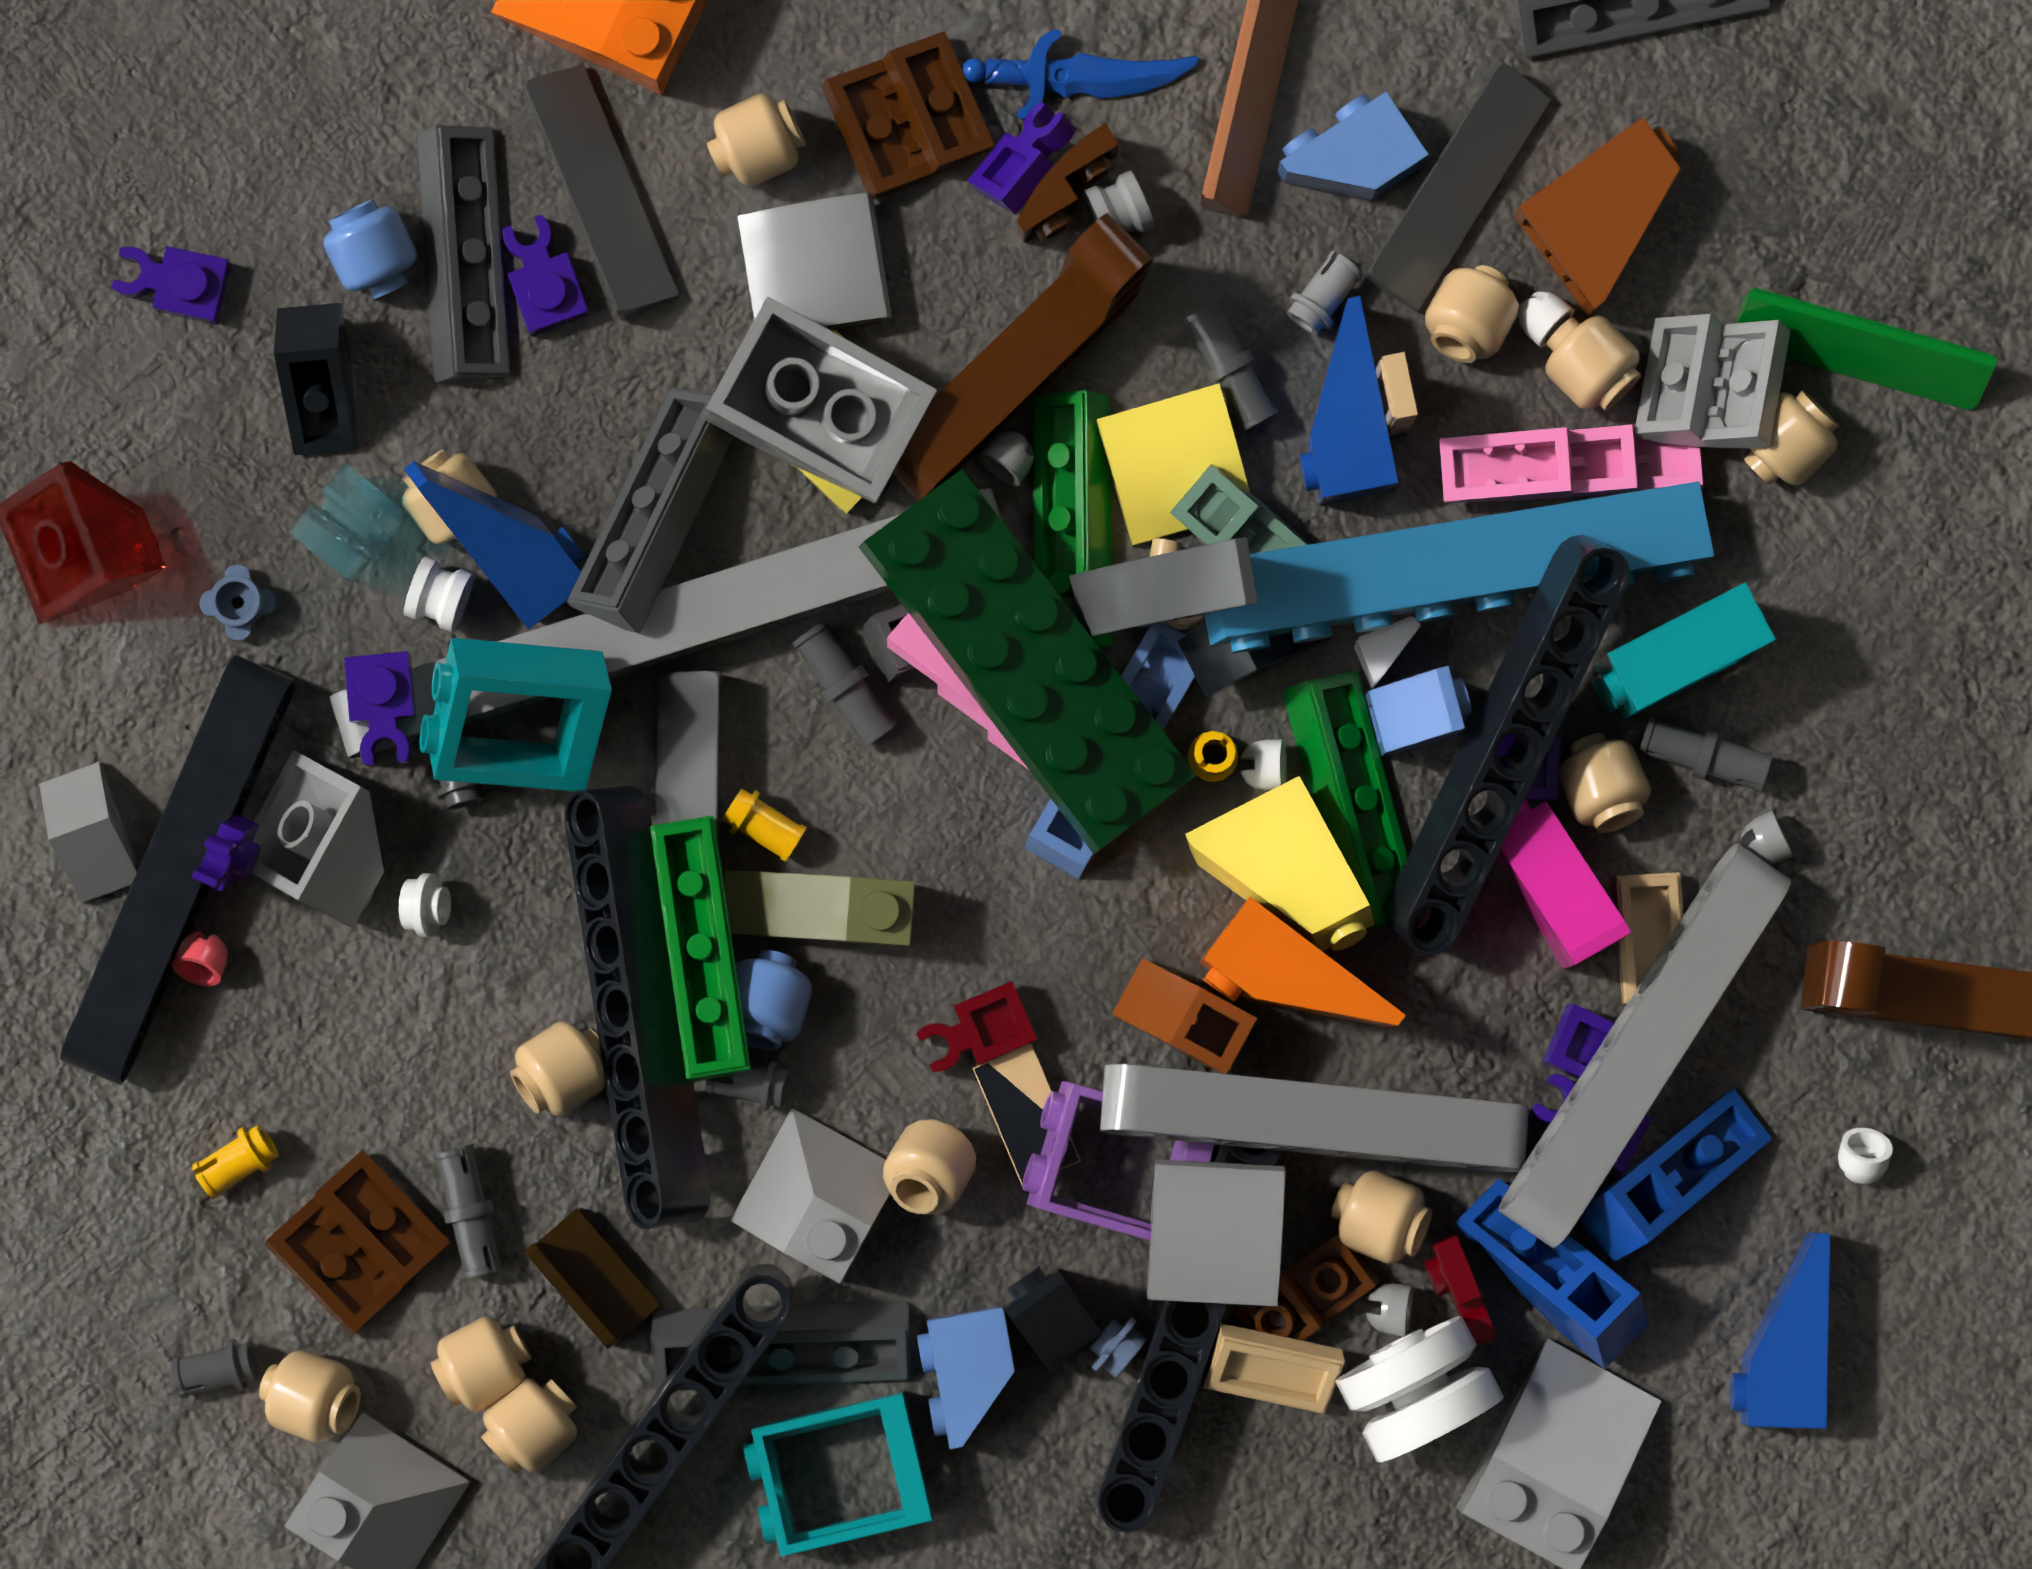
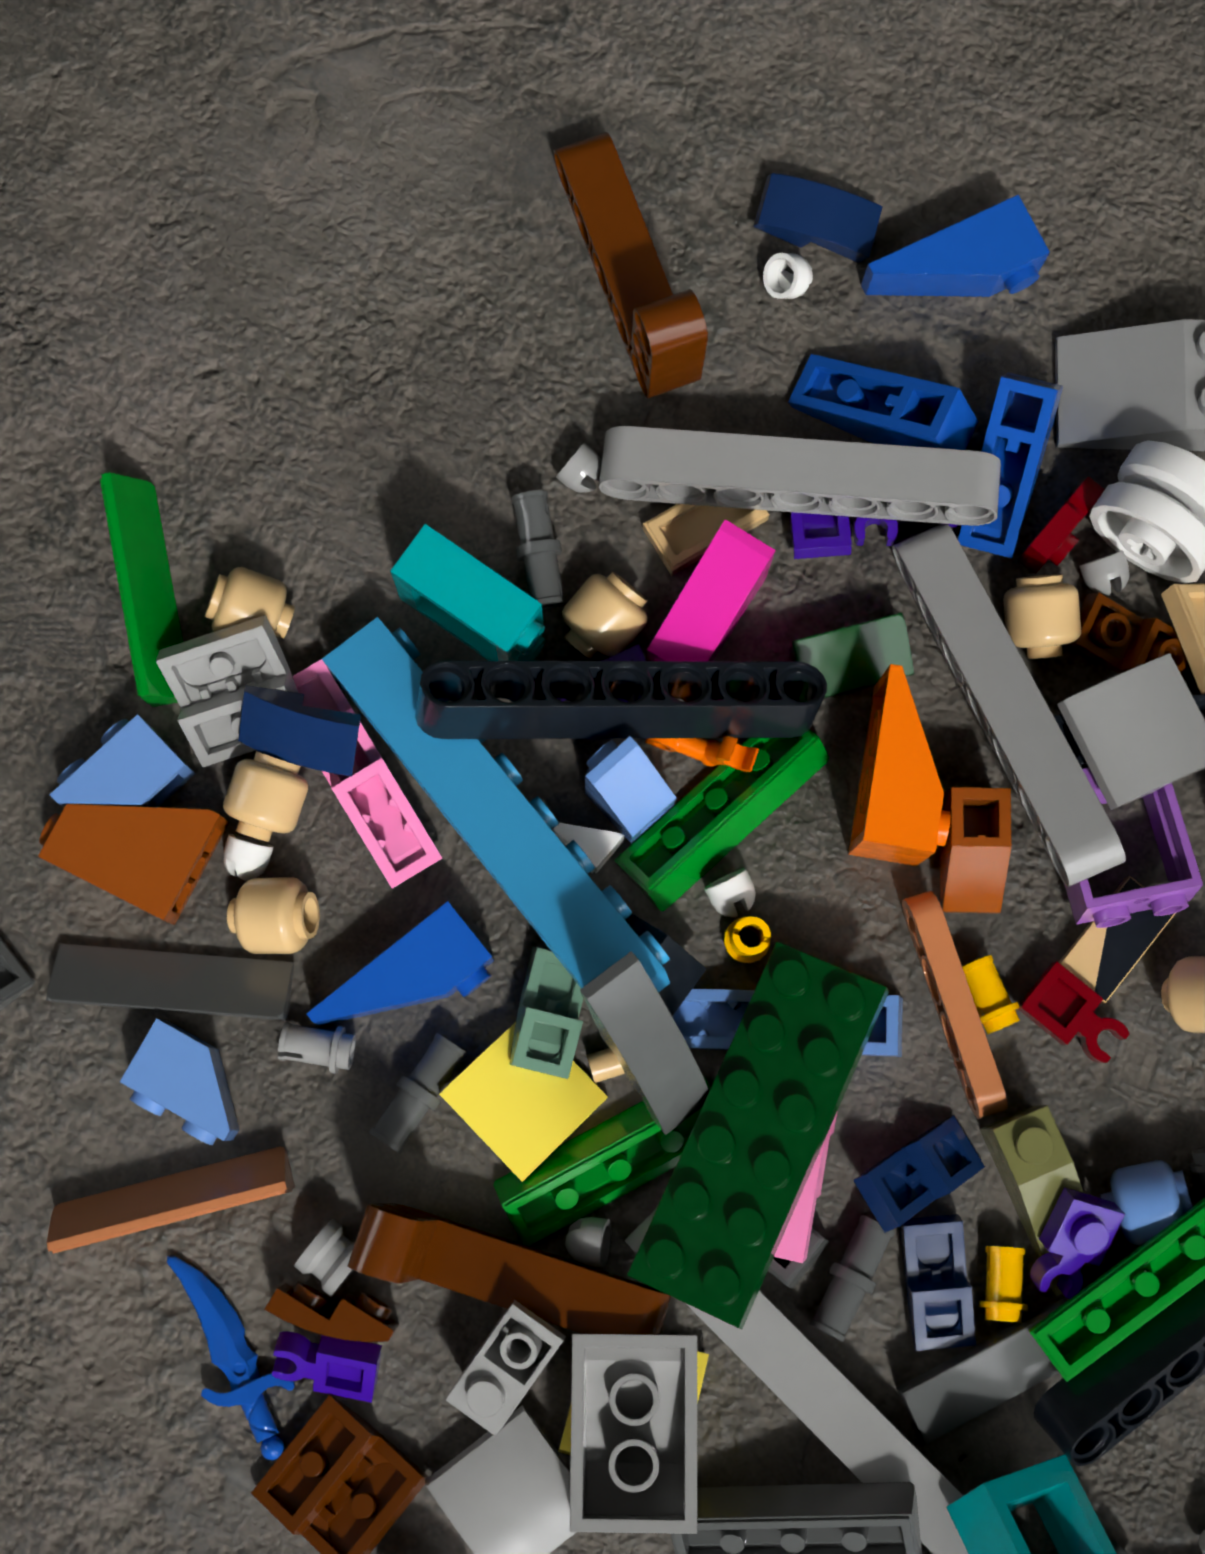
camera: 125 degrees left, 5 degrees down
(776, 910) = (1075, 1234): none -> dark purple plate
(798, 763) = (937, 1282): none -> dark blue slope
(907, 799) = (919, 1174): none -> dark blue slope
(936, 315) = (505, 1367): none -> light grey slope
(1038, 959) = (990, 995): none -> yellow pin
(1048, 920) = (954, 1004): none -> nougat beam
(1288, 864) = (808, 829): light yellow slope -> none
(1396, 393) = (372, 940): tan tile -> none
(1409, 820) = (710, 751): none -> orange arm
(1436, 1010) = (856, 654): none -> dark green slope
(1627, 427) = (296, 733): none -> dark blue slope
(1683, 244) = (128, 770): none -> medium blue slope
(1913, 1222) = (819, 214): none -> dark blue slope

